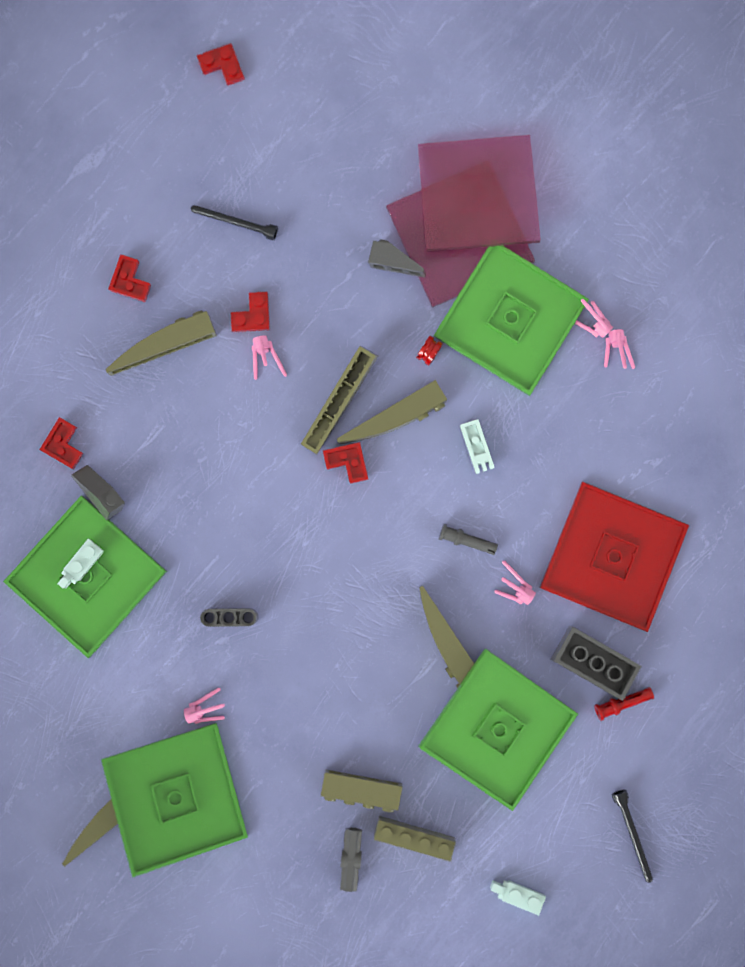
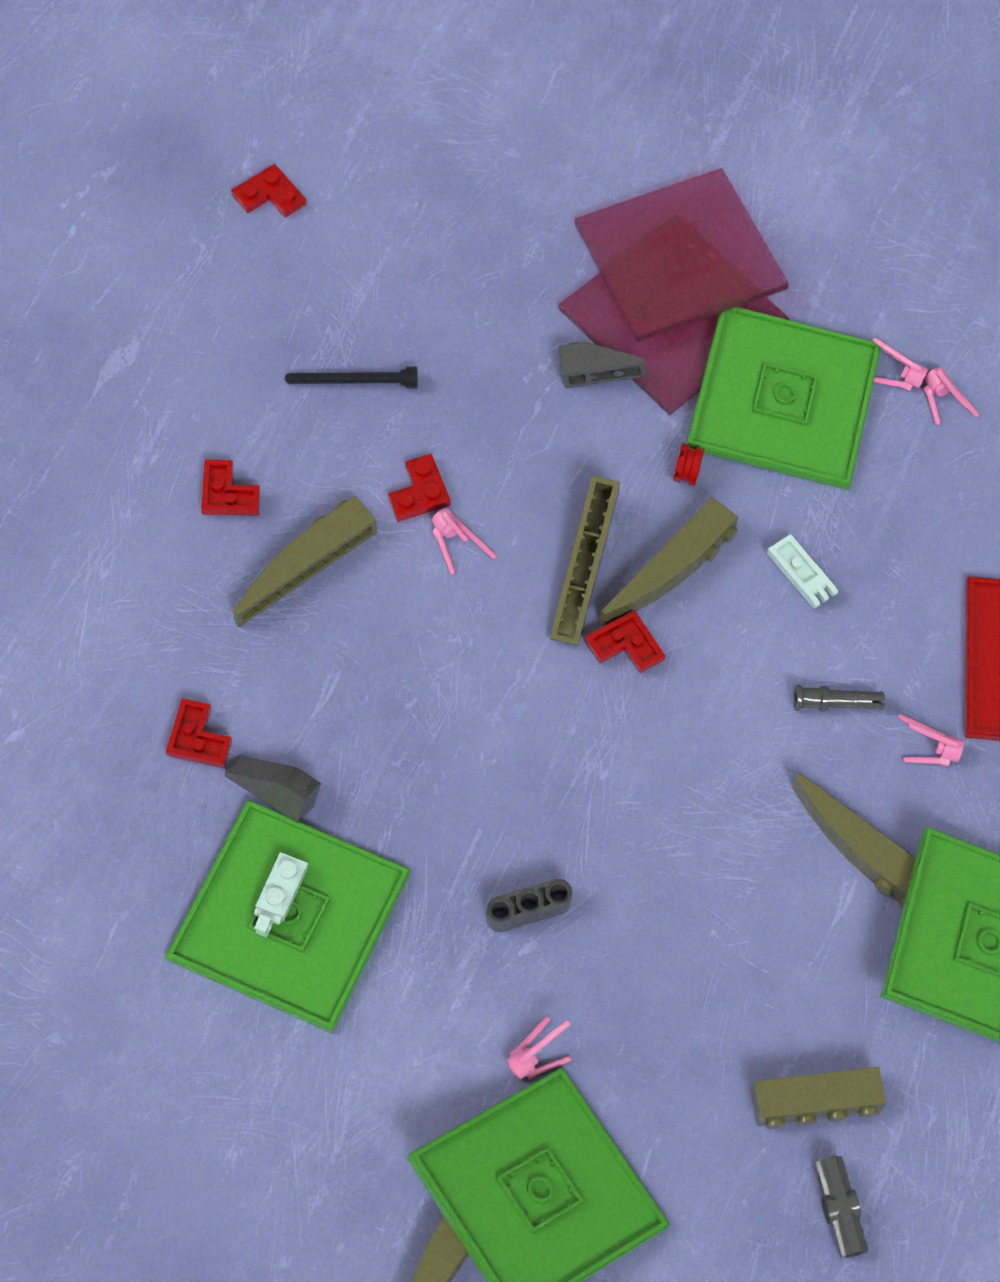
camera: 20 degrees left, 20 degrees down
(414, 838) = (925, 1142): olive brick -> none

